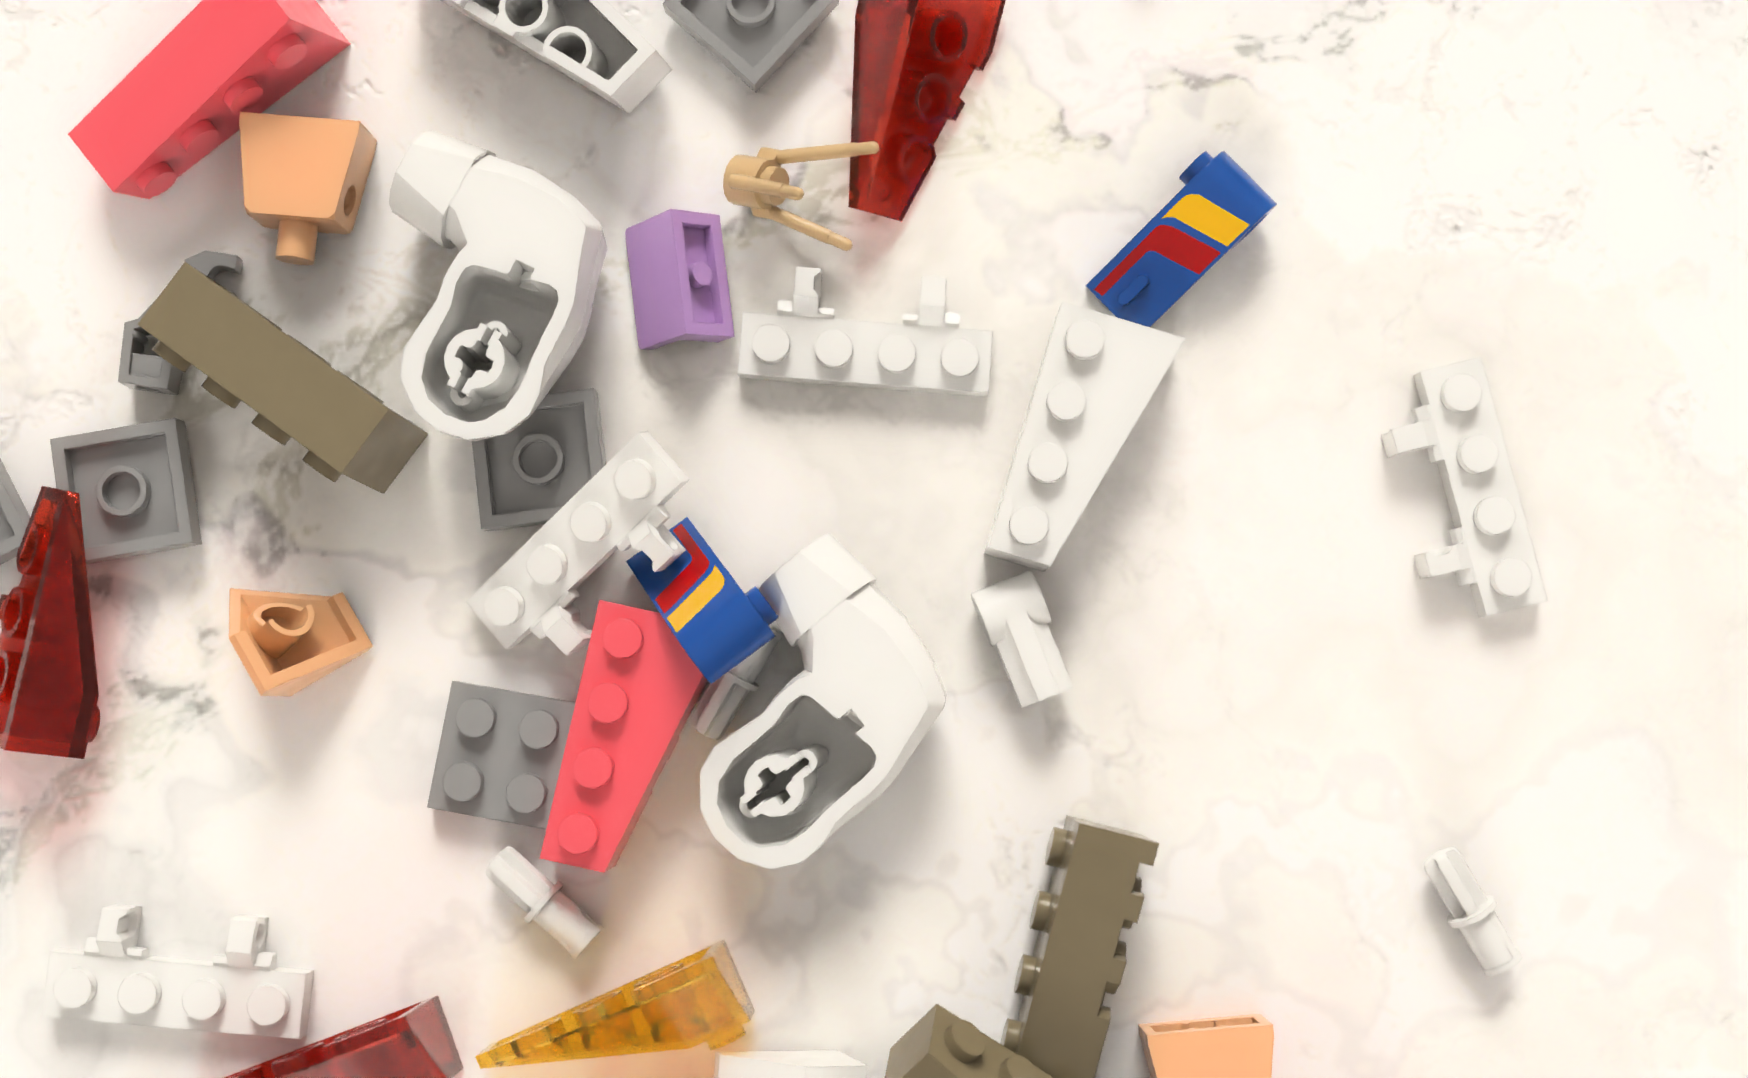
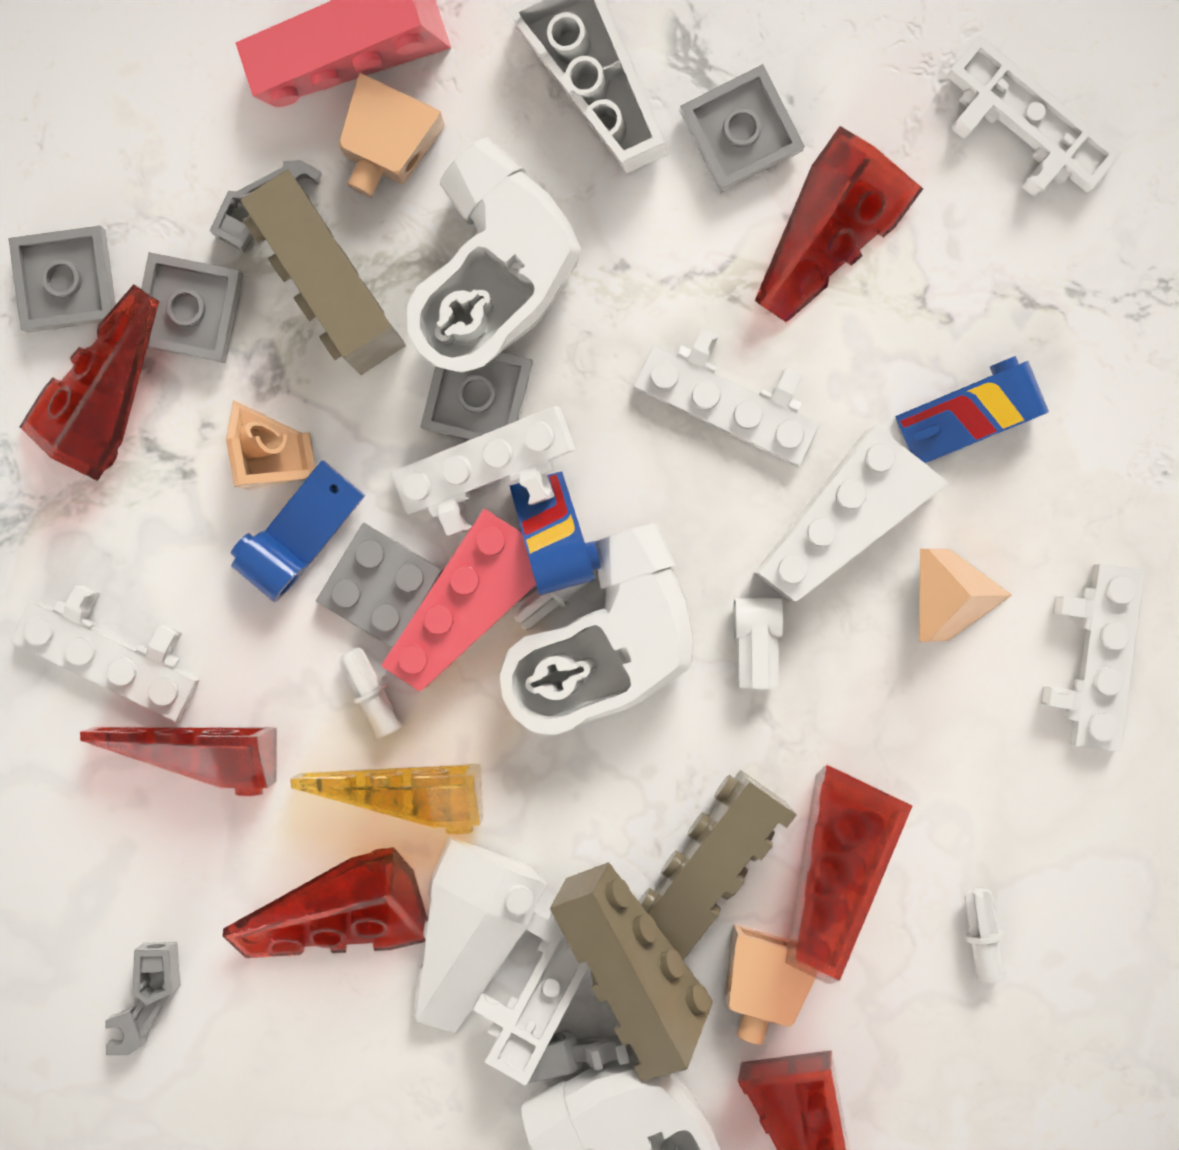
camera: 10 degrees right, 5 degrees up
(363, 760) = (298, 533): none -> blue door
(679, 279) = (618, 305): lavender panel -> none
(763, 184) = (701, 262): tan plant -> none
(1248, 892) = (842, 865): none -> clear red wedge
(1249, 482) = (952, 595): none -> light nougat slope

